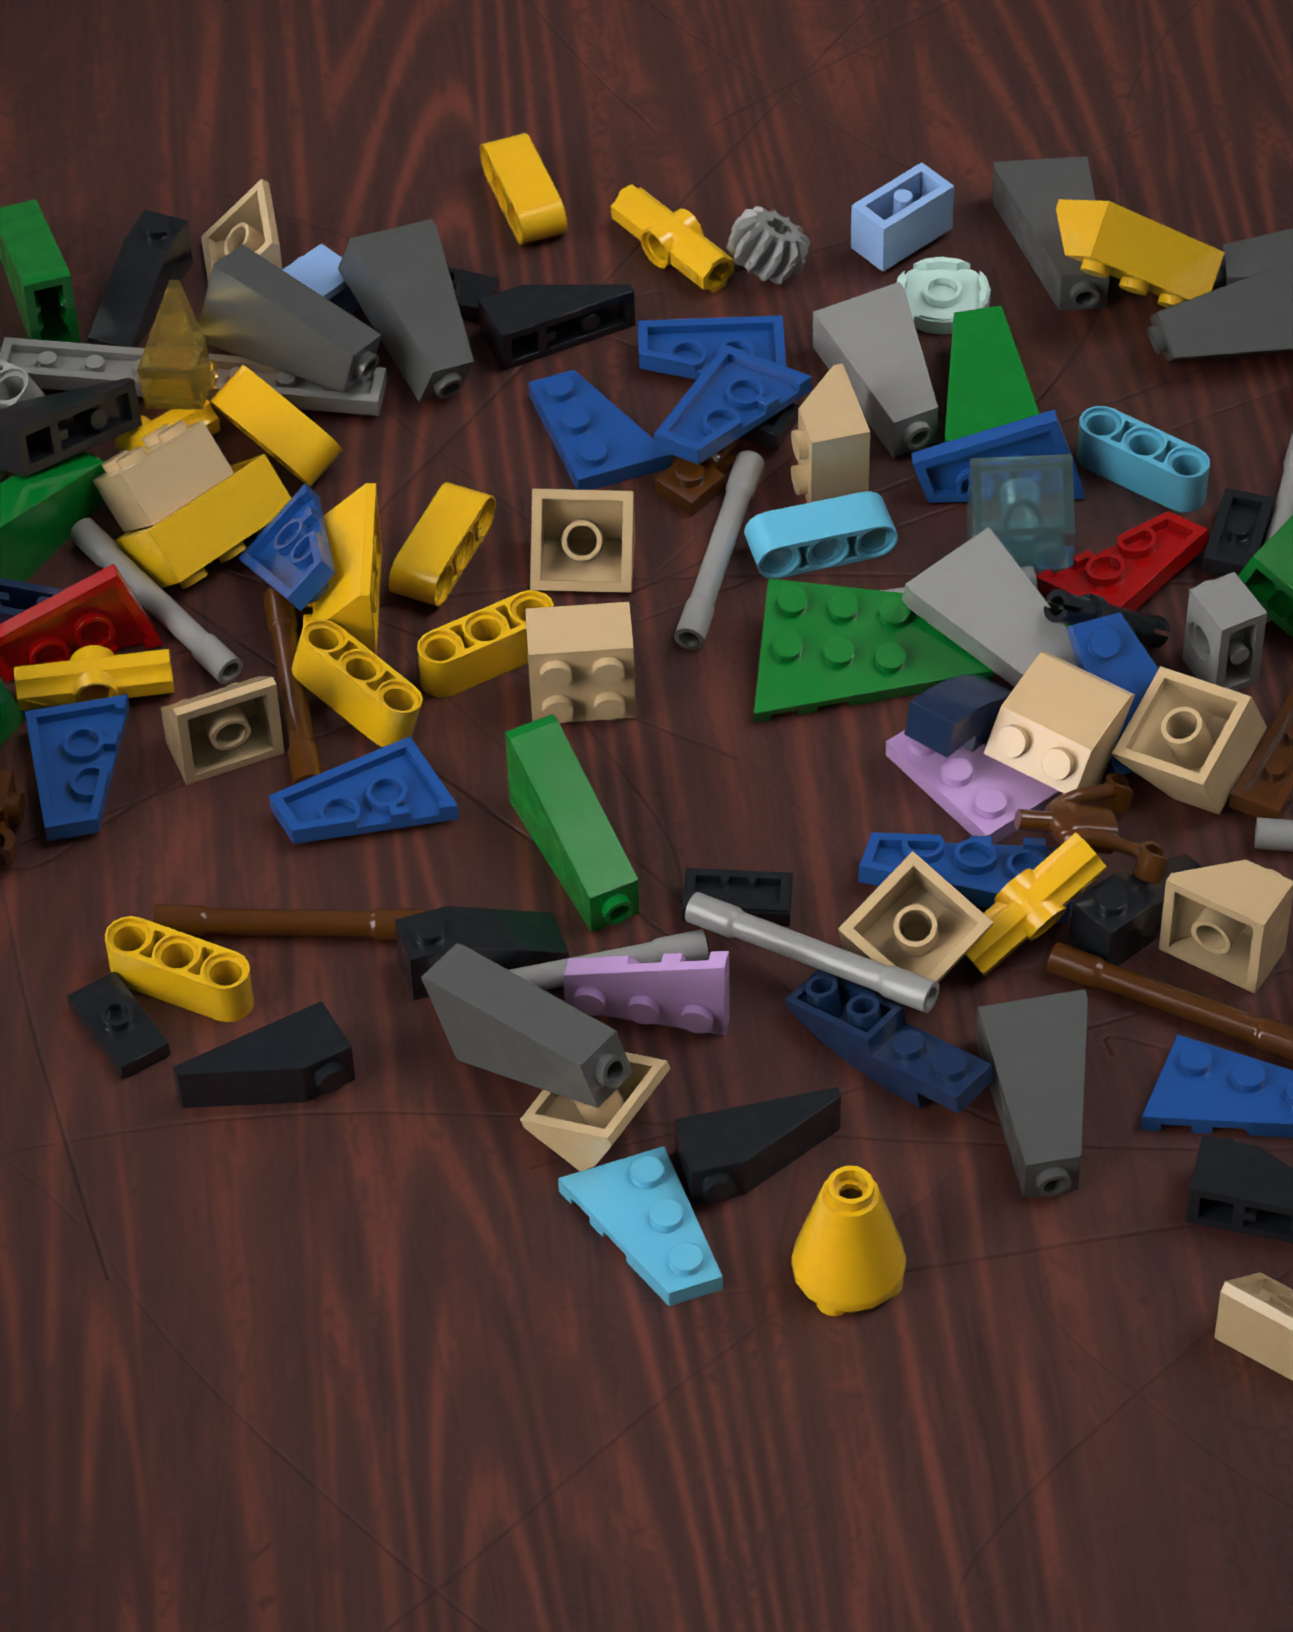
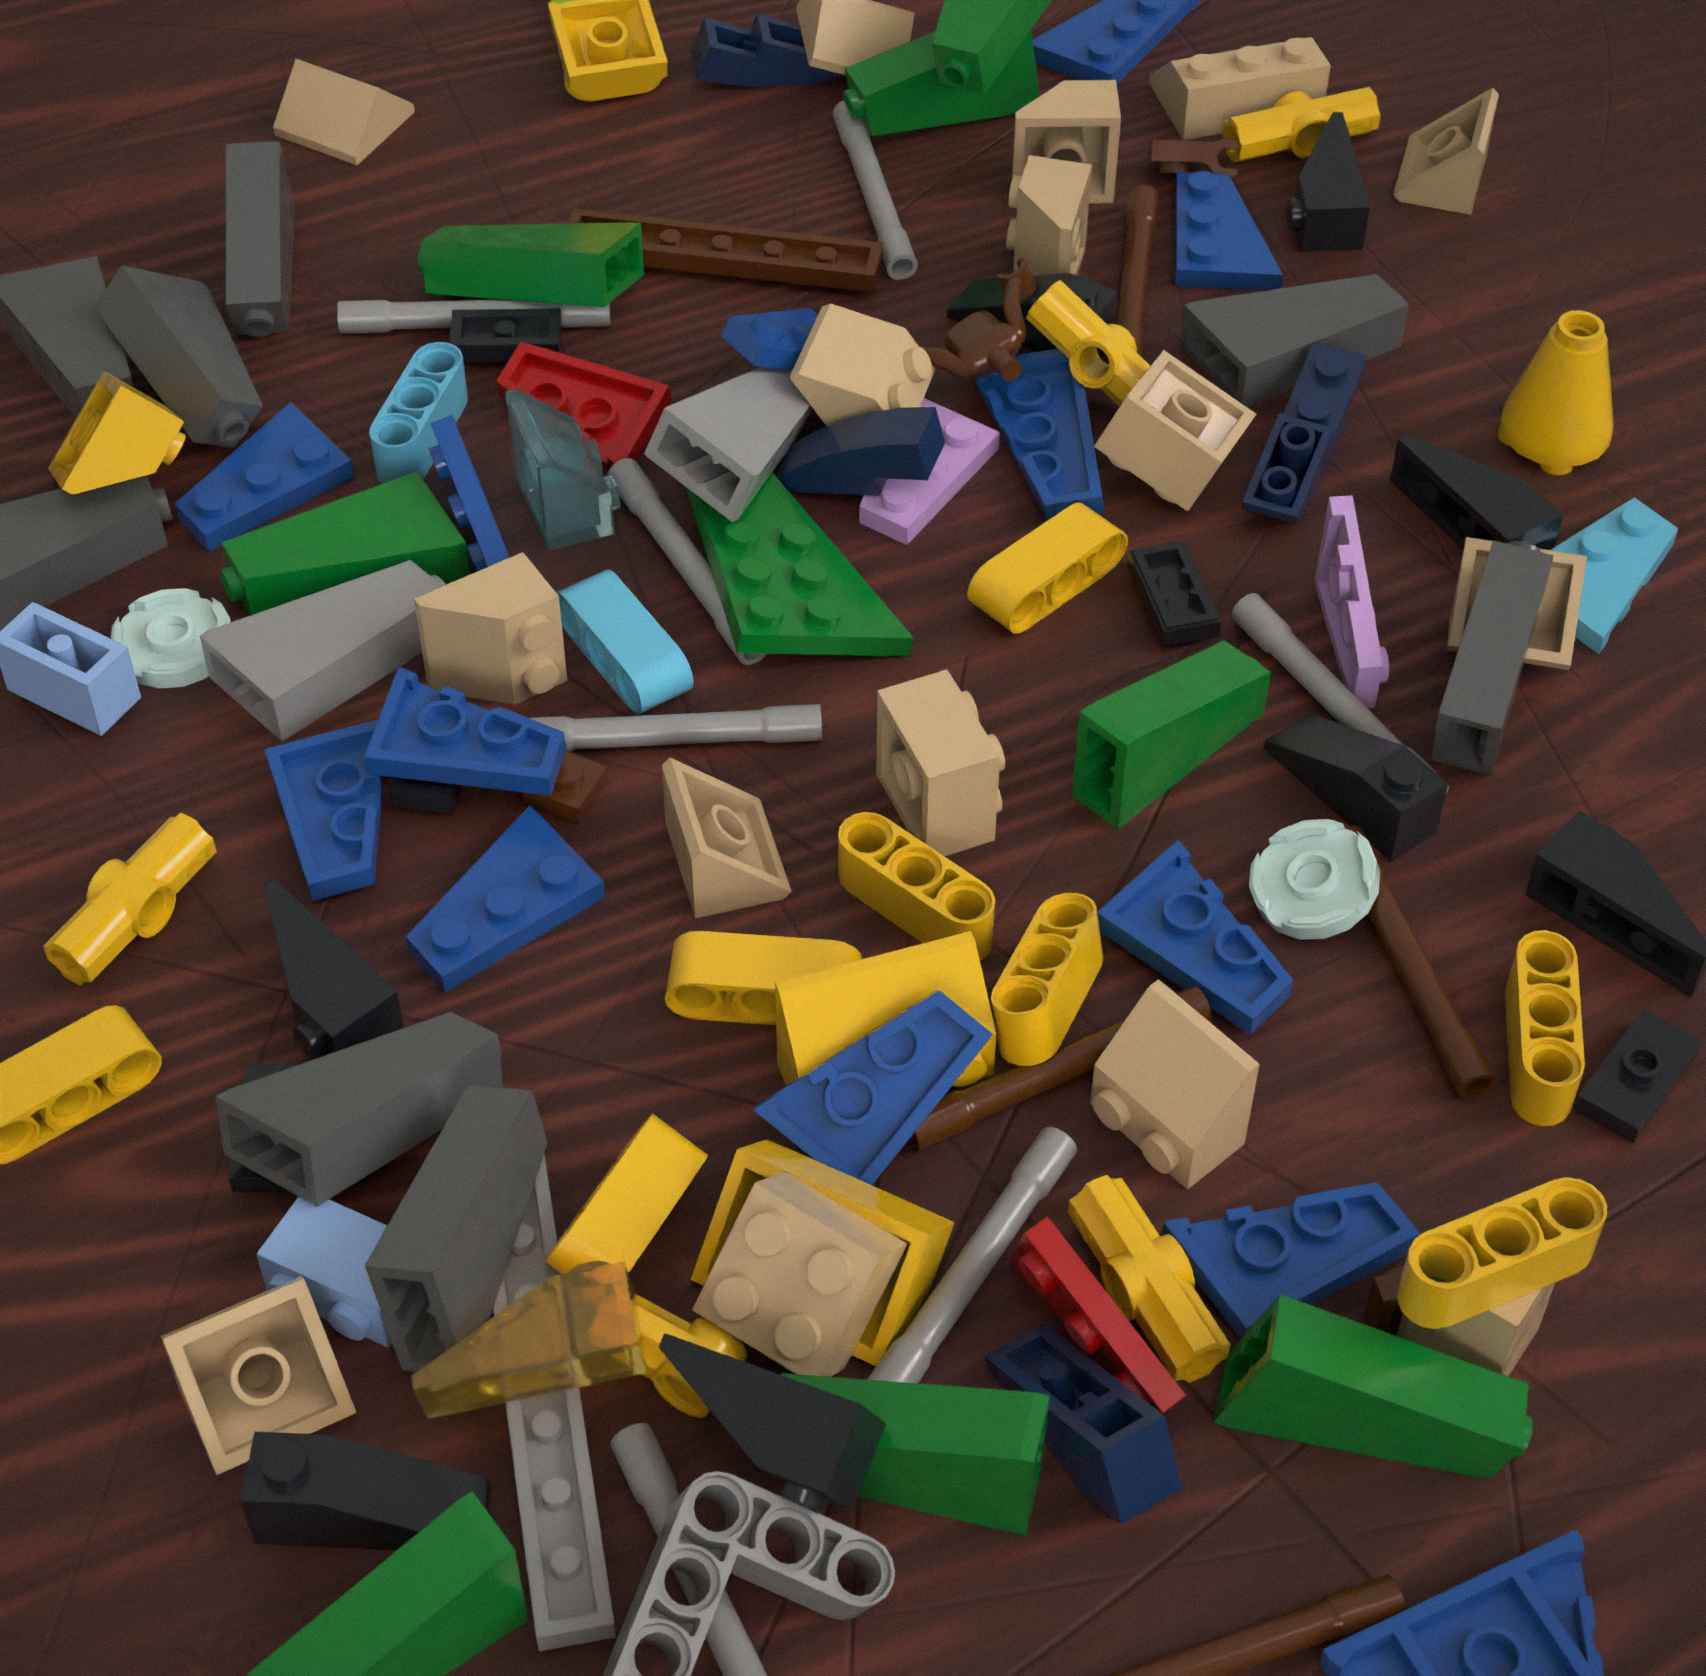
camera: 110 degrees left, 0 degrees up
(384, 881) = (1314, 879): none -> light aqua tile
(768, 245) = (142, 784): light grey gear -> none
(799, 818) = (1047, 567): none -> yellow beam
(889, 981) = (1234, 560): light grey piece -> none
(1079, 609) = (710, 363): black pin -> none
(1112, 366) = (264, 478): none -> blue wing
(1191, 738) = (836, 270): tan slope -> none
(1224, 633) = (683, 292): light grey brick -> none

